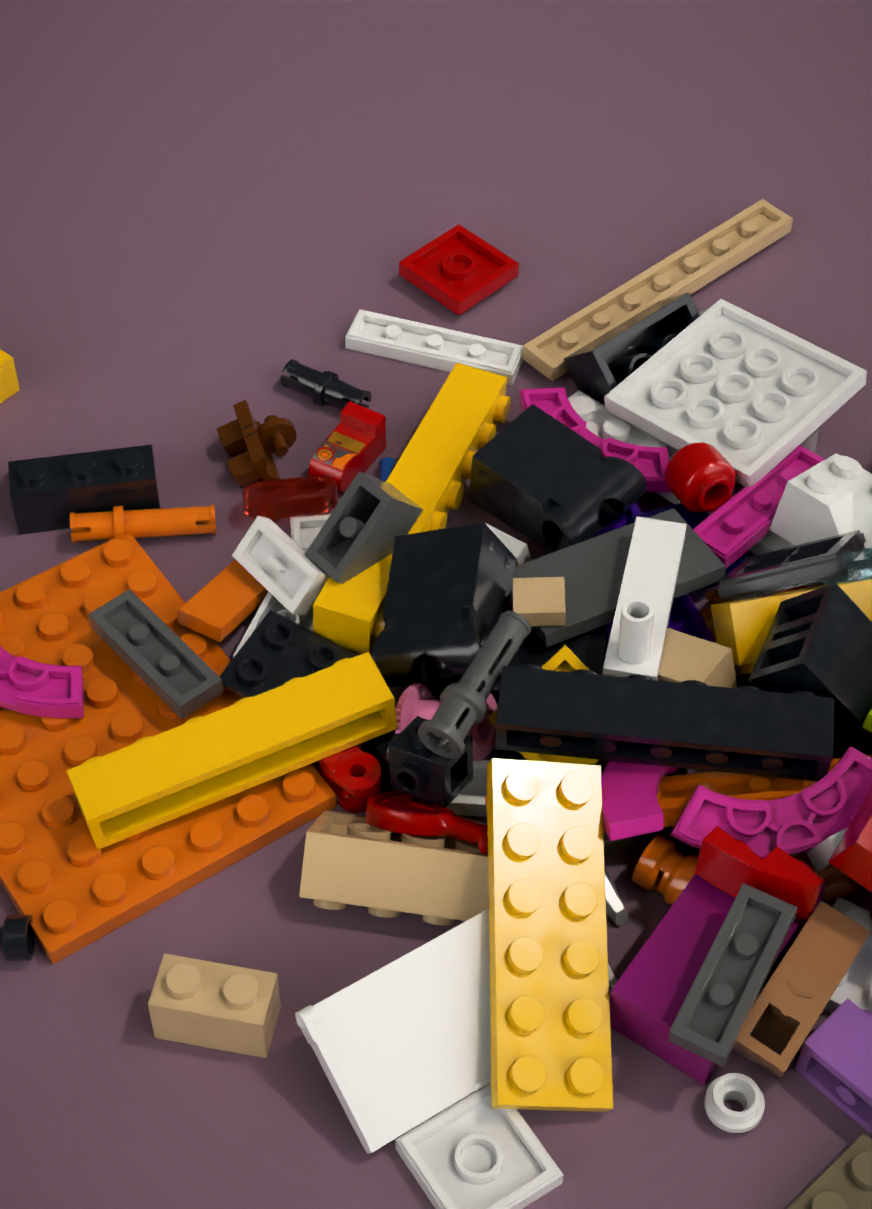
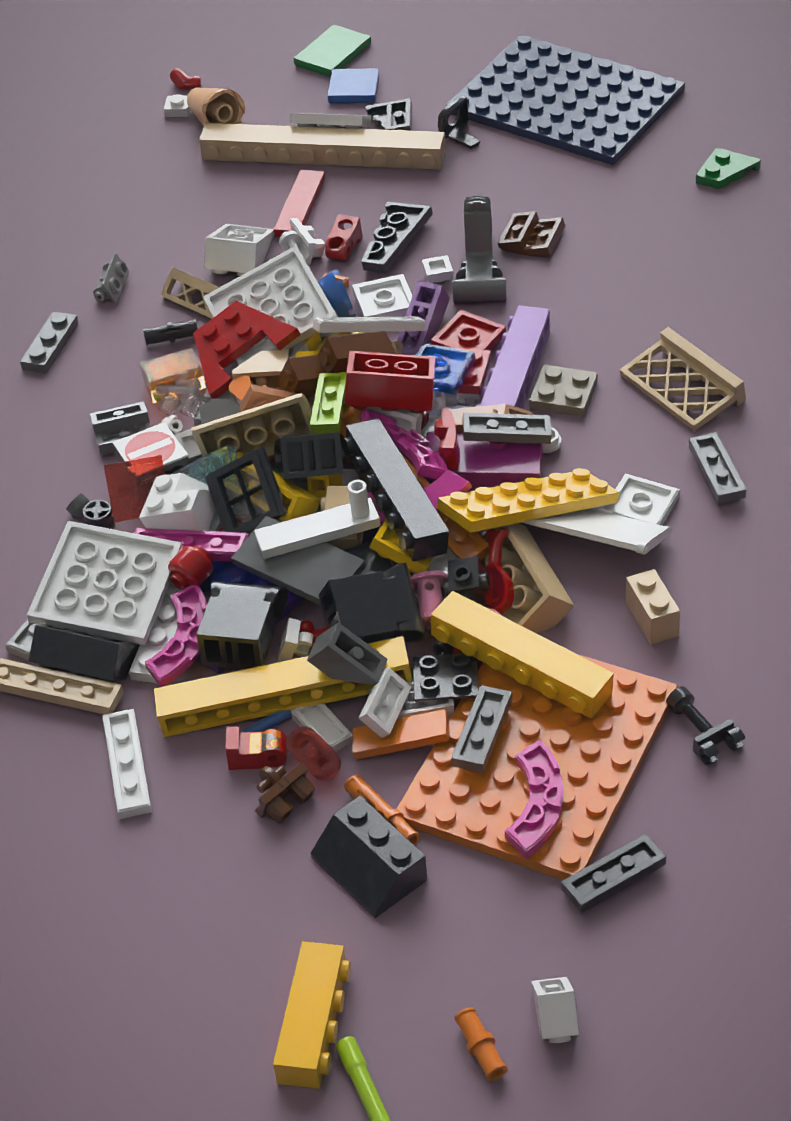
camera: 115 degrees left, 5 degrees down
(323, 387) = (204, 791): black pin -> none
(458, 269) = (45, 780): red plate -> none
(465, 701) = (443, 552): dark grey pin -> none
(540, 600) = (346, 564): tan tile -> none

